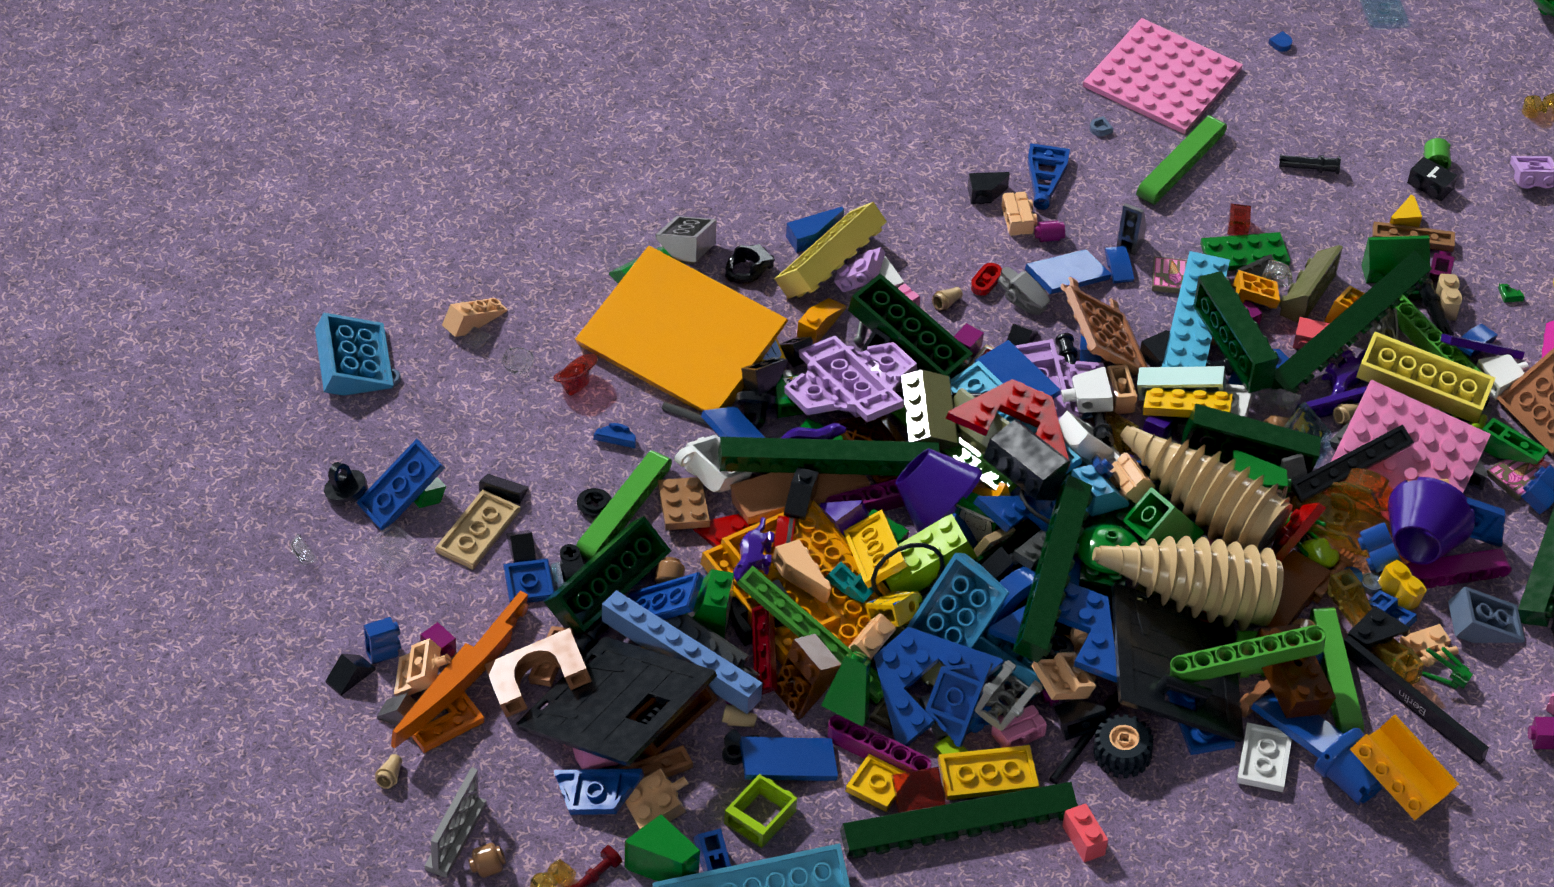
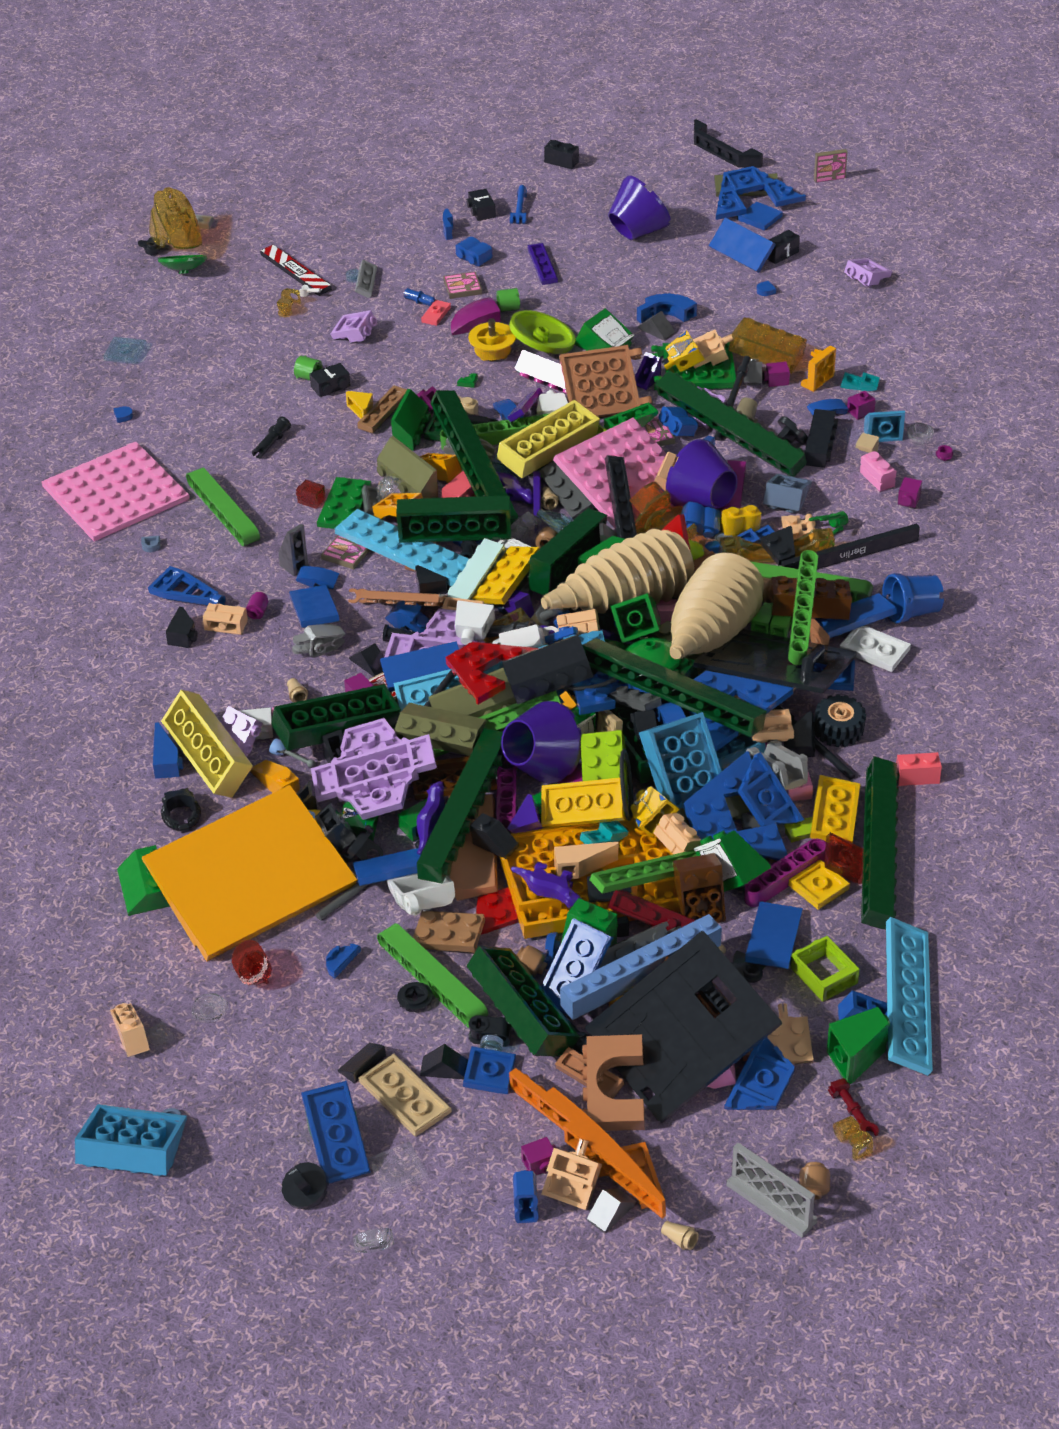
camera: 65 degrees left, 5 degrees down
(348, 672) = (544, 1241): black slope -> none
(688, 238) = (141, 828): light grey slope -> none
(784, 530) = (524, 860): red sticker -> none
(983, 282) = (288, 660): red plate -> none
(1404, 767) = (930, 564): light orange panel -> none

